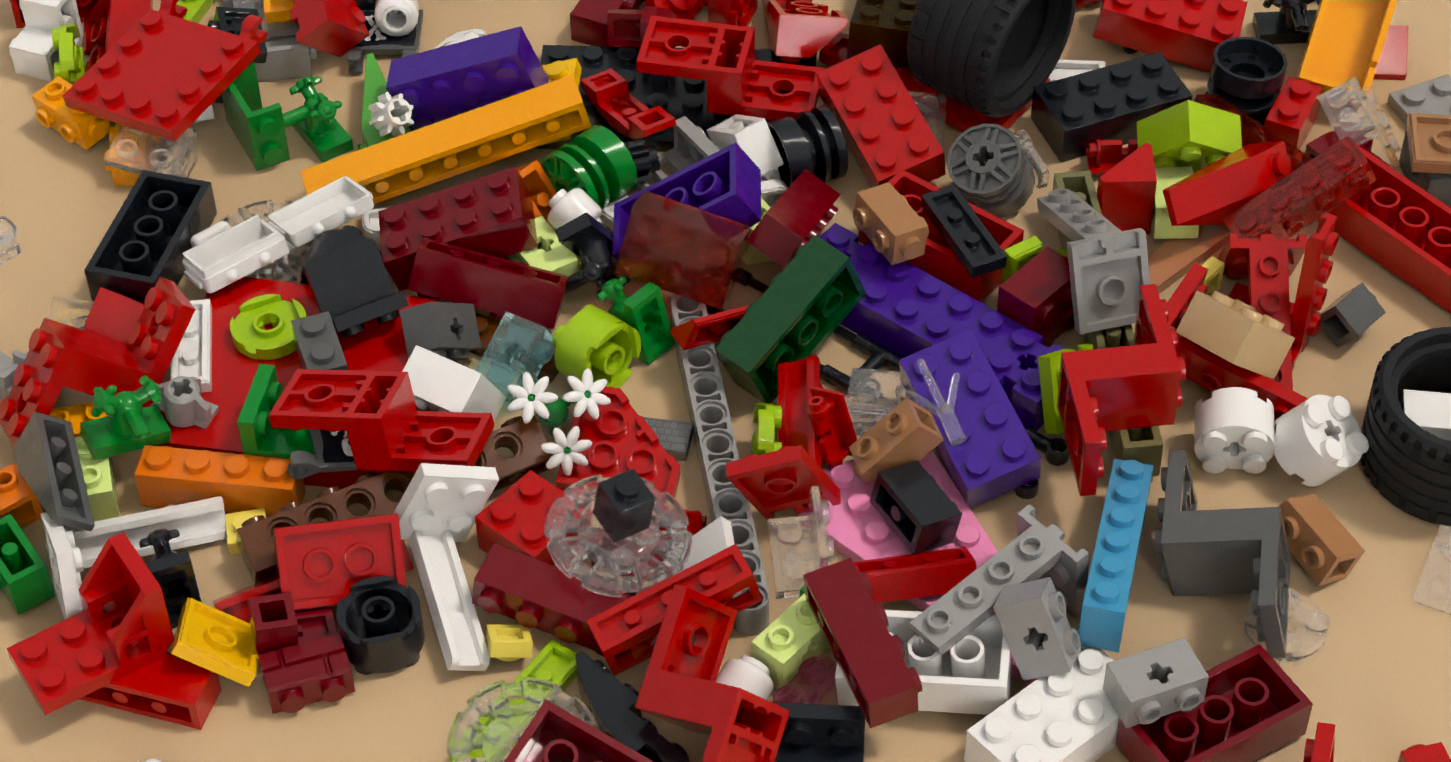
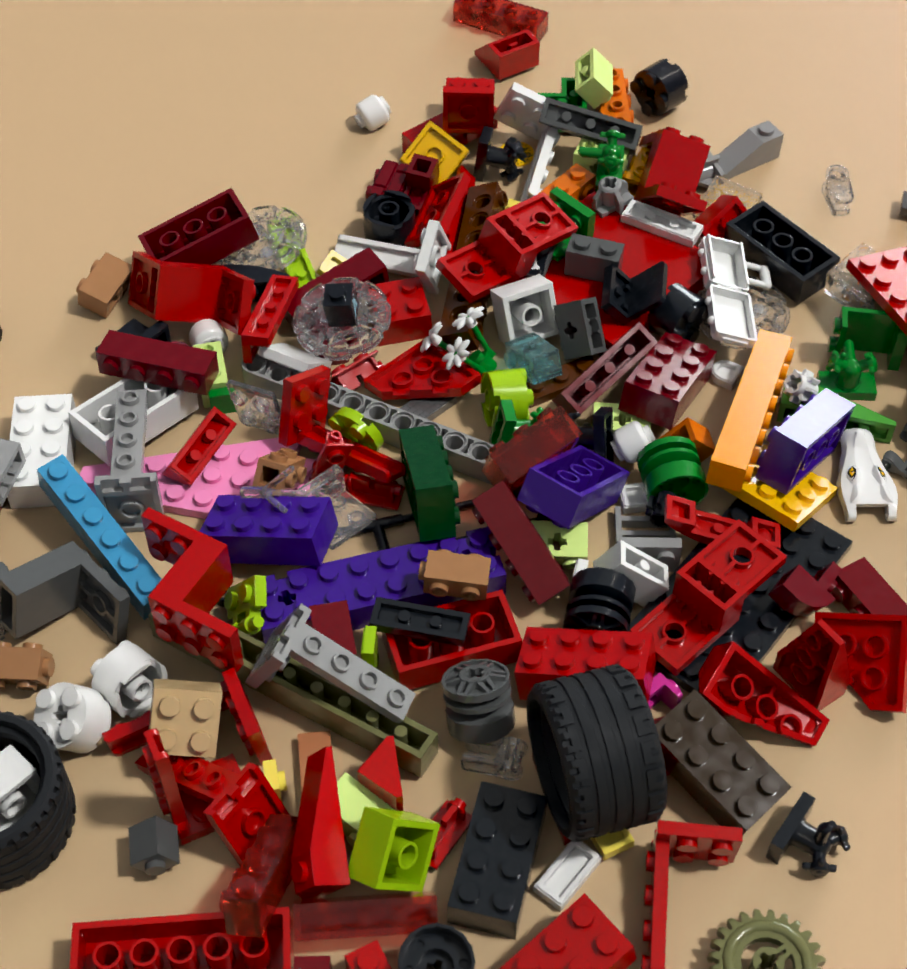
camera: 125 degrees right, 5 degrees up
(249, 330) = (637, 253): lime plate -> none
(707, 328) = (467, 461): red slope -> none
(915, 507) = (229, 463): black brick -> none
(1037, 628) = (82, 437): light grey brick -> none

